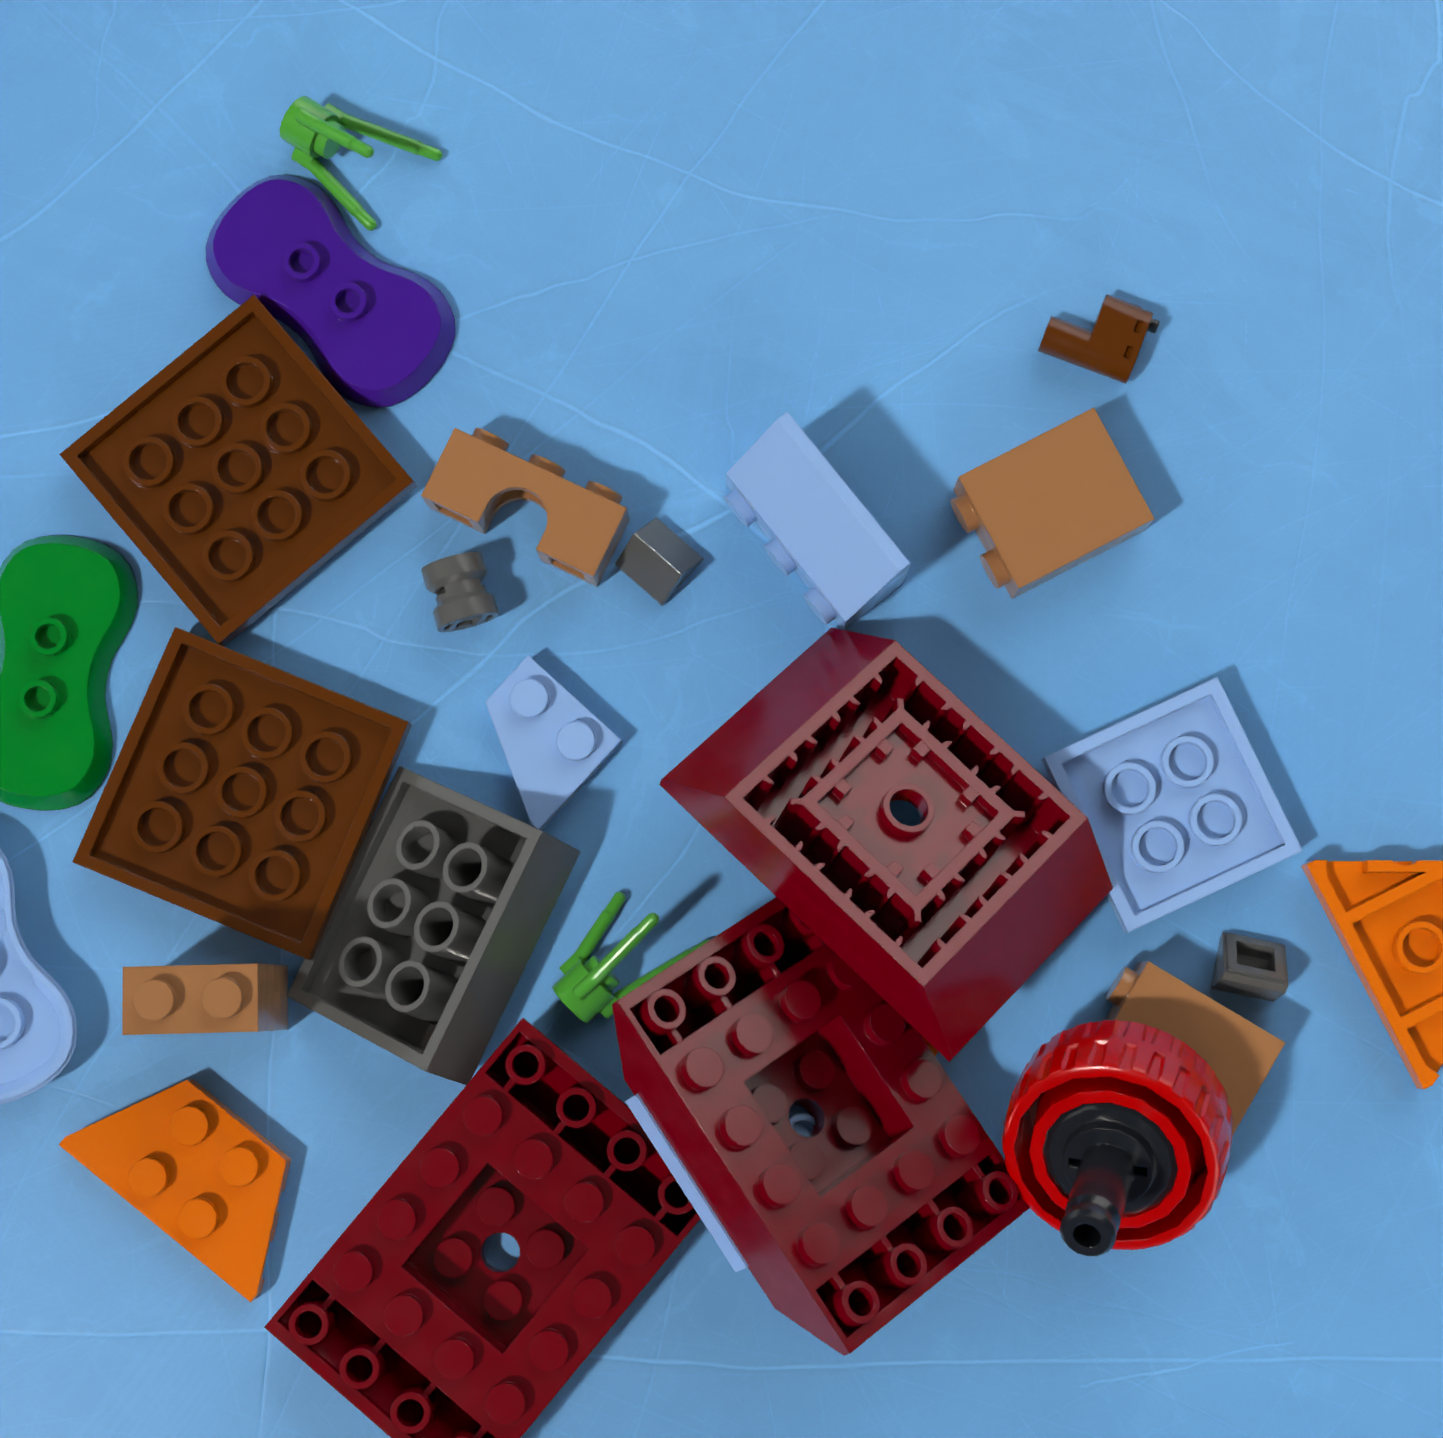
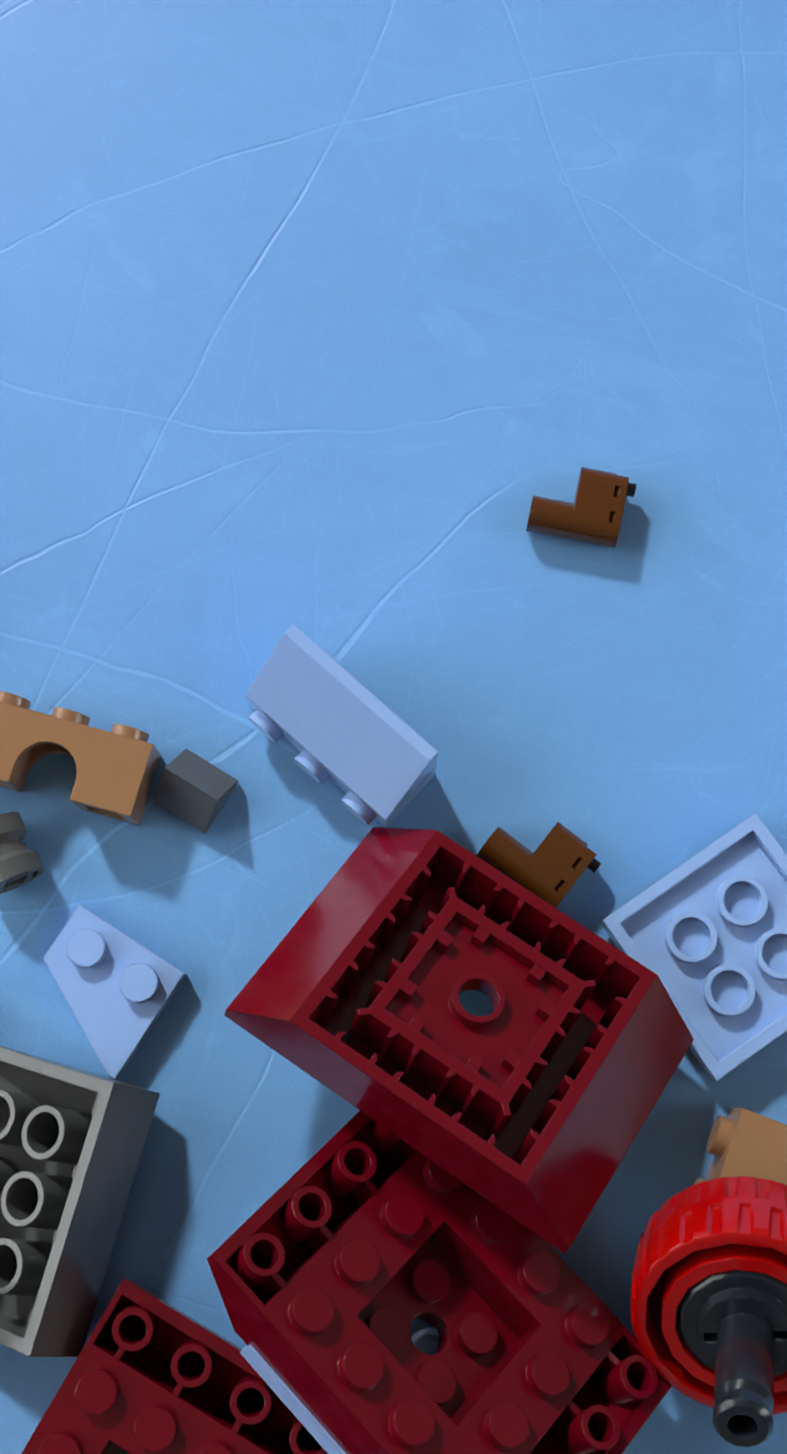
camera: 15 degrees left, 5 degrees down
(590, 985) = (190, 1227): bright green plant -> none
(996, 700) = (548, 870): none -> reddish brown piece
(1050, 504) = (564, 673): medium nougat brick -> none

